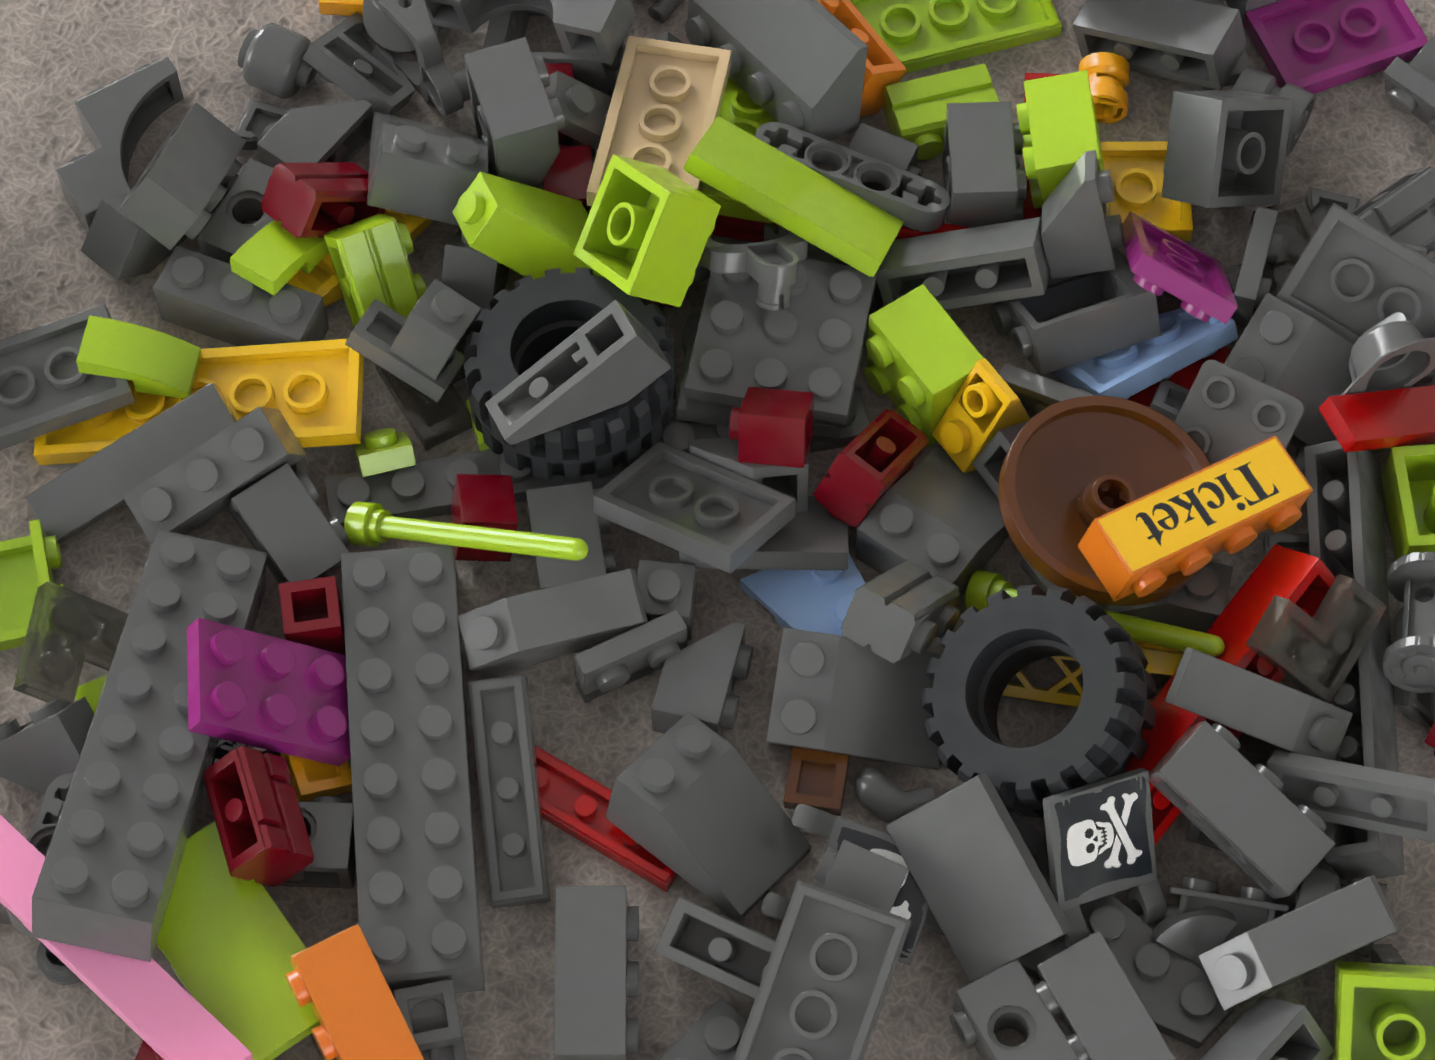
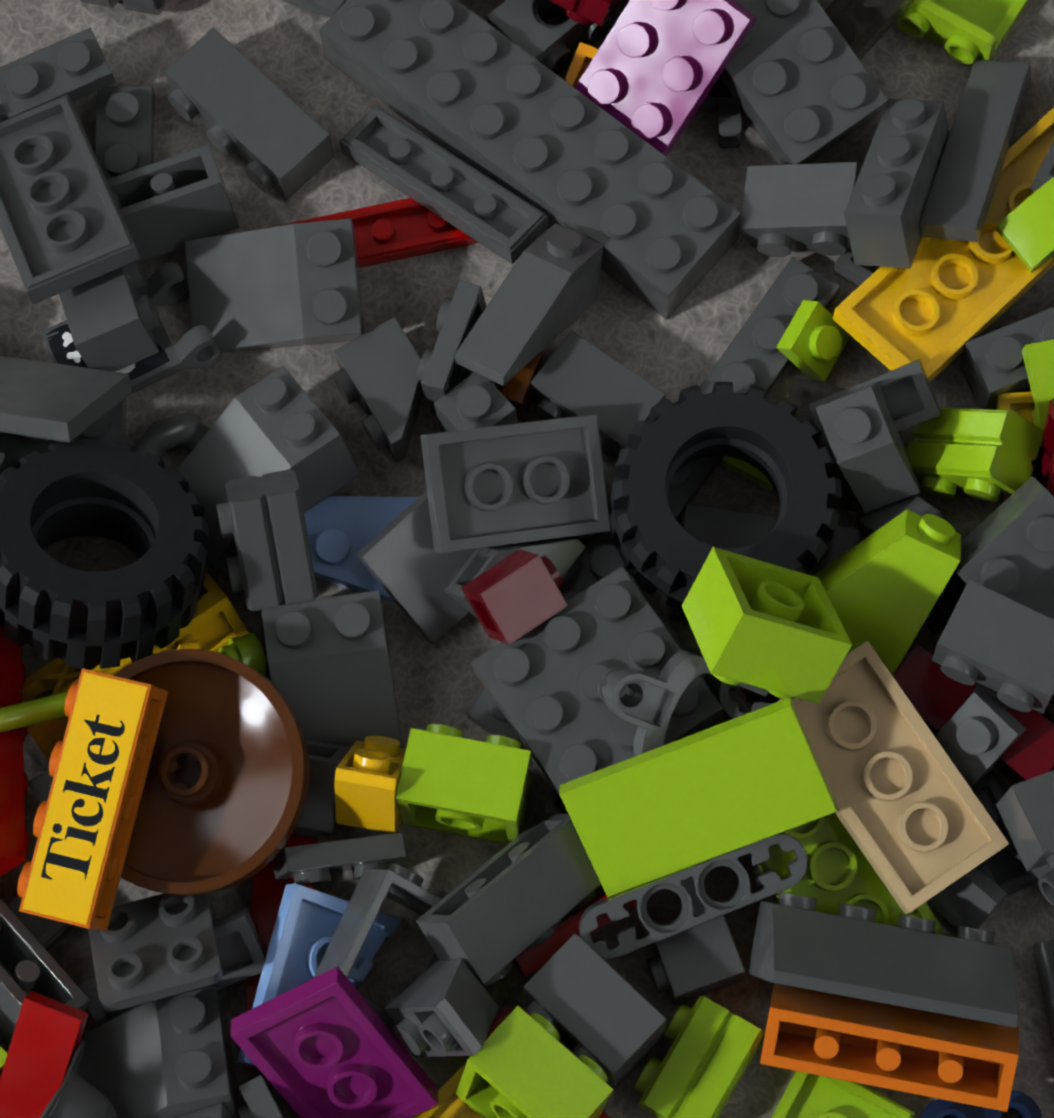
camera: 140 degrees right, 10 degrees up
(313, 613) = (716, 156): dark red brick -> none
(370, 525) = (753, 270): lime piece -> none
(483, 503) = (676, 350): dark red brick -> none
(583, 375) = (675, 446): dark grey slope -> none
(816, 780) = (223, 385): reddish brown plate -> none
(870, 467) = (420, 656): dark red brick -> none

